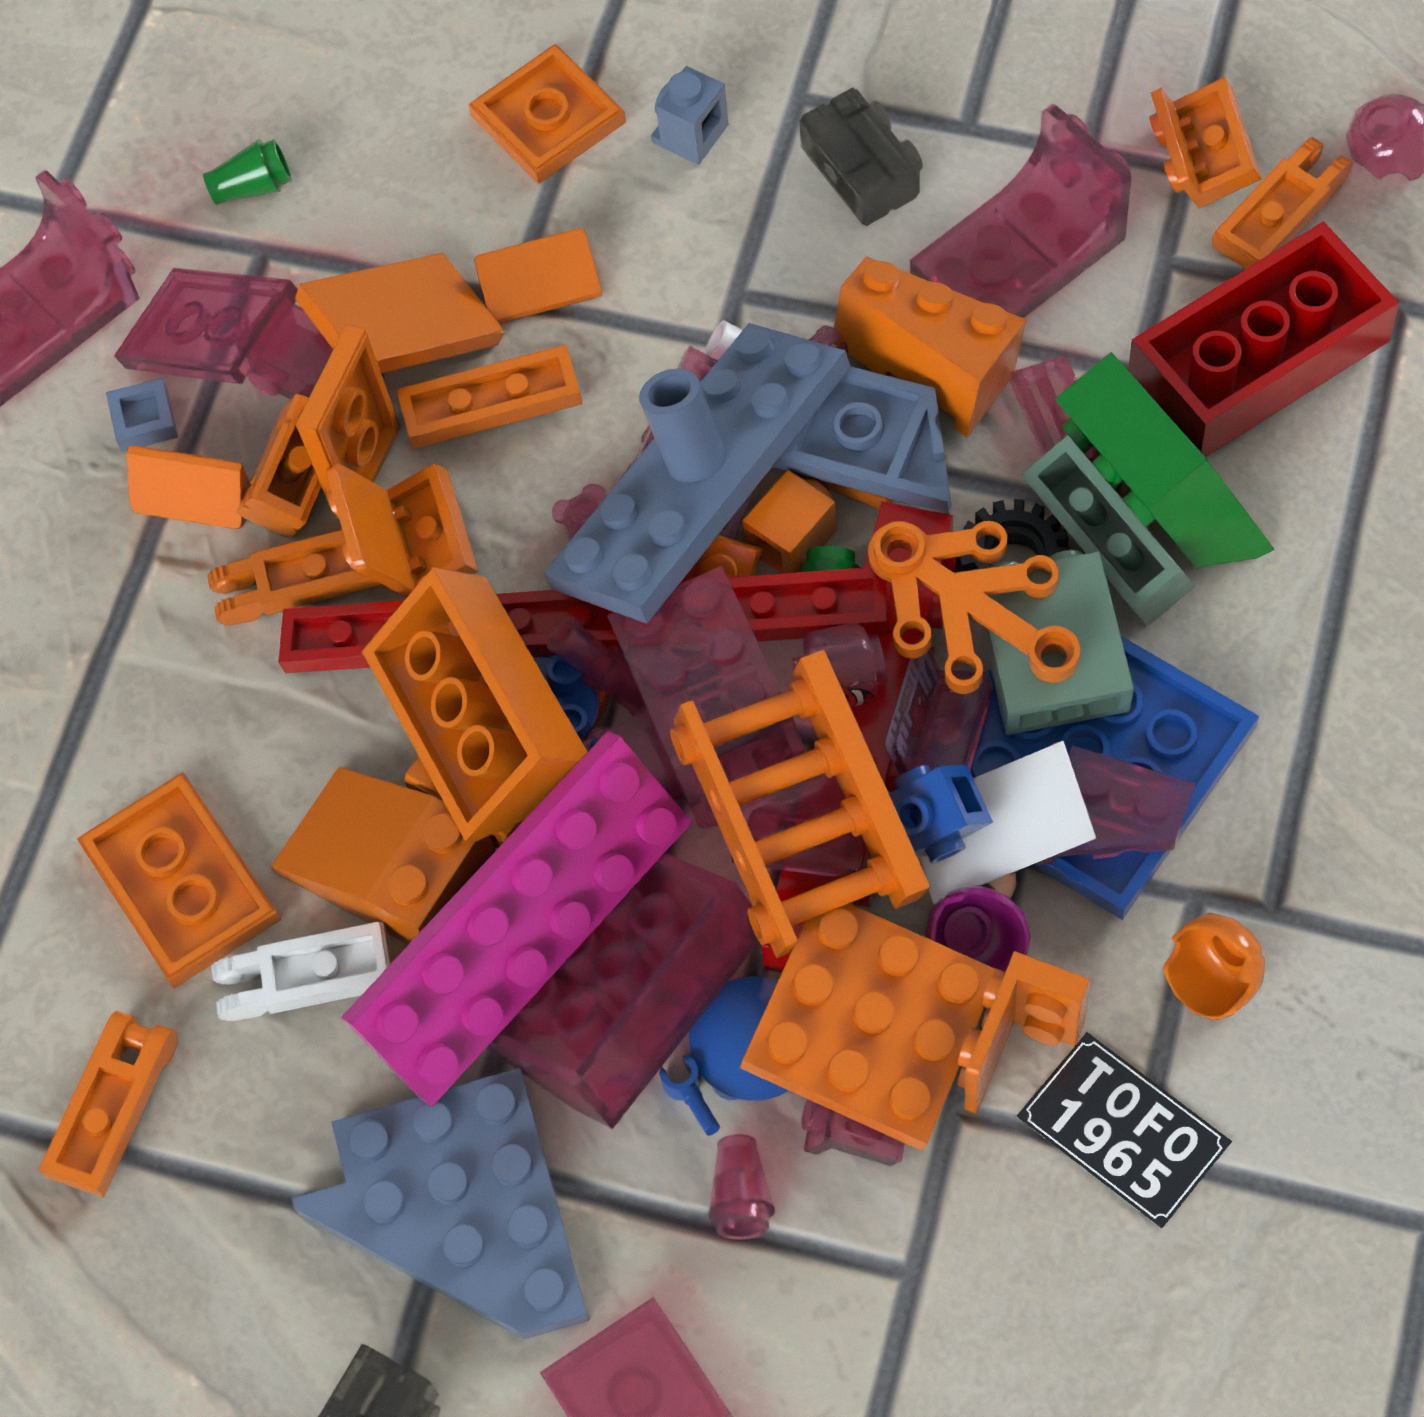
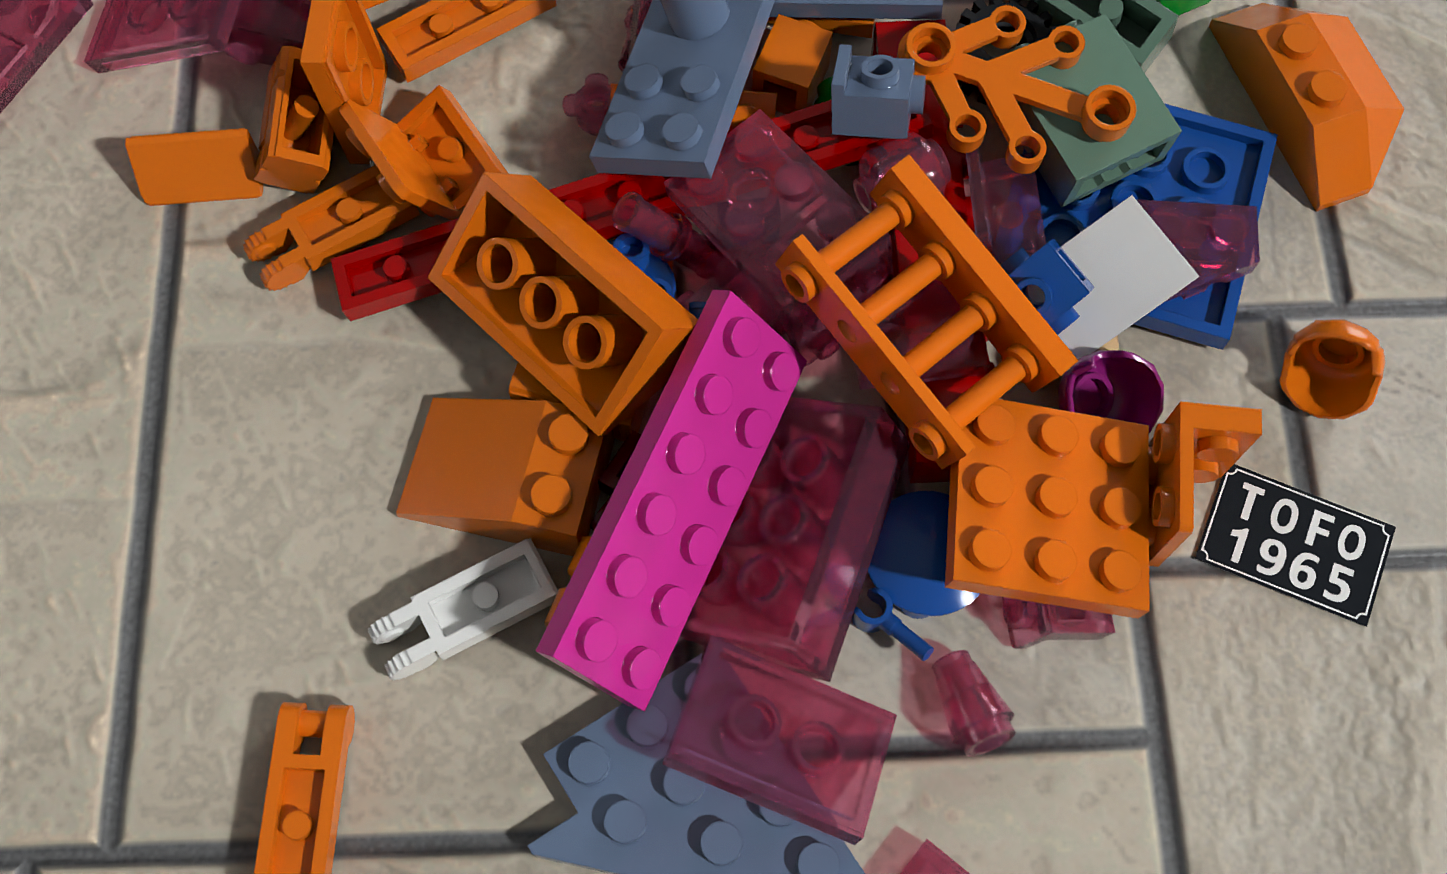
camera: 25 degrees left, 5 degrees up
(142, 414) = (128, 108): sand blue plate -> none
(178, 880) = (305, 551): orange tile -> none
(547, 1167) = (781, 740): none -> clear pink tile
(828, 580) = (874, 95): none -> sand blue brick
(1325, 684) = (1315, 92): none -> orange wedge

